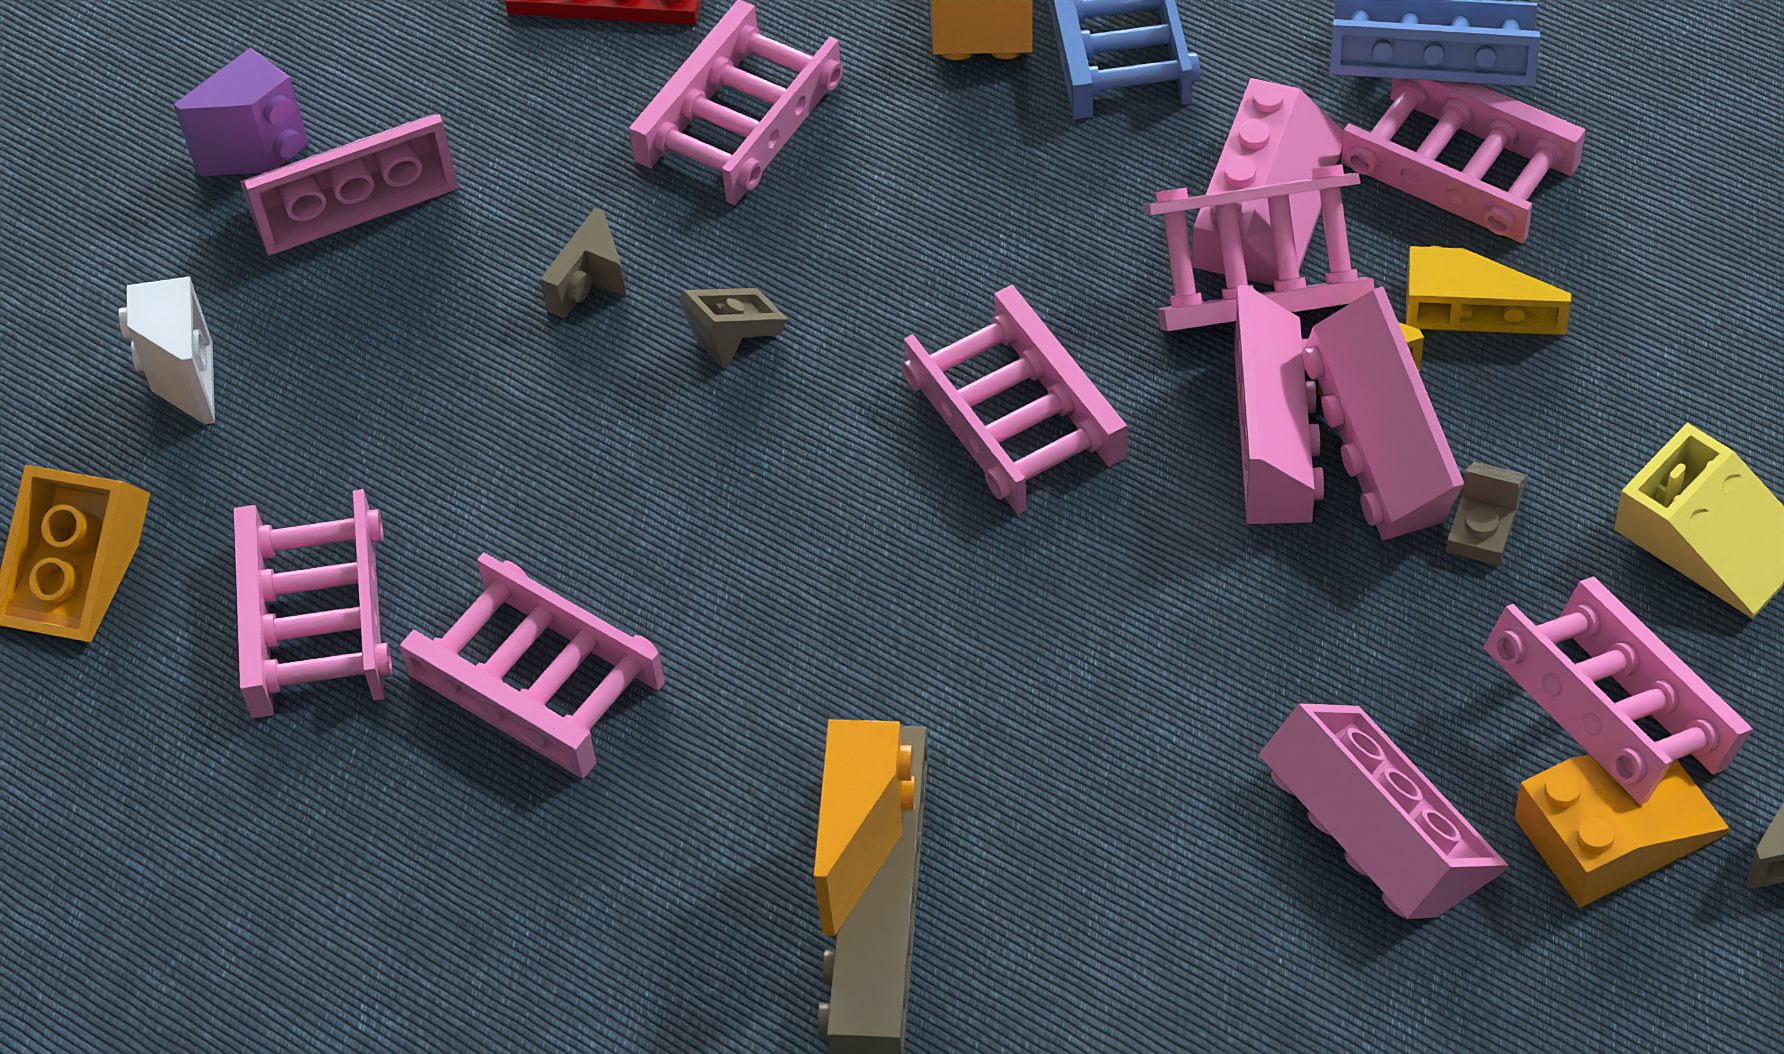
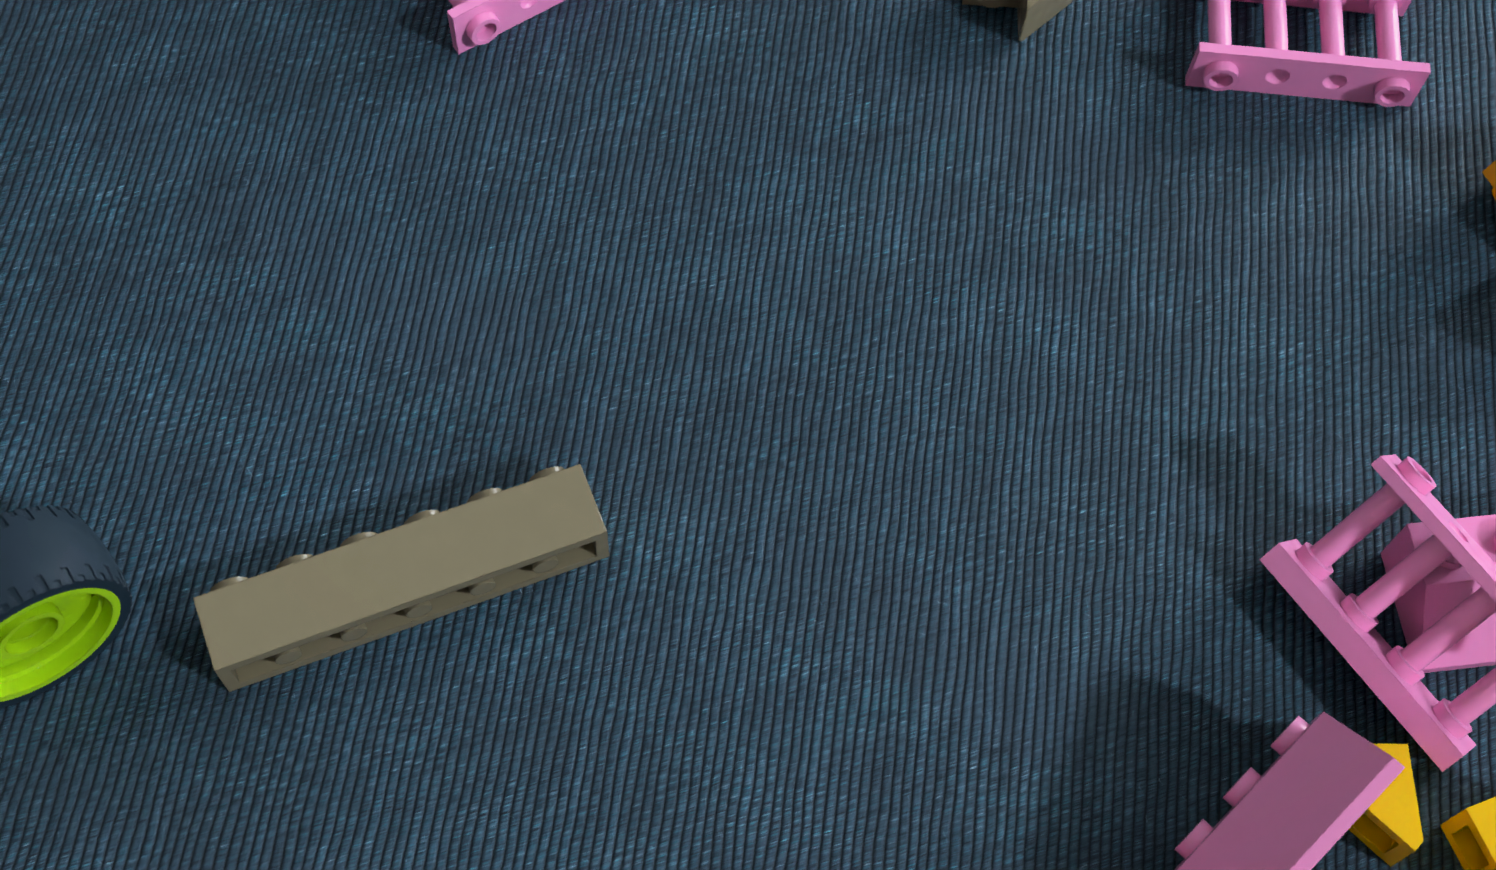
camera: 55 degrees right, 10 degrees up
(524, 712) = (491, 117): bright pink fence -> none
(727, 315) = (1029, 129): dark tan slope -> none
(861, 811) = (418, 503): light orange slope -> none
(1040, 358) = (1115, 492): bright pink fence -> none
(1274, 413) = (1214, 719): bright pink slope -> none

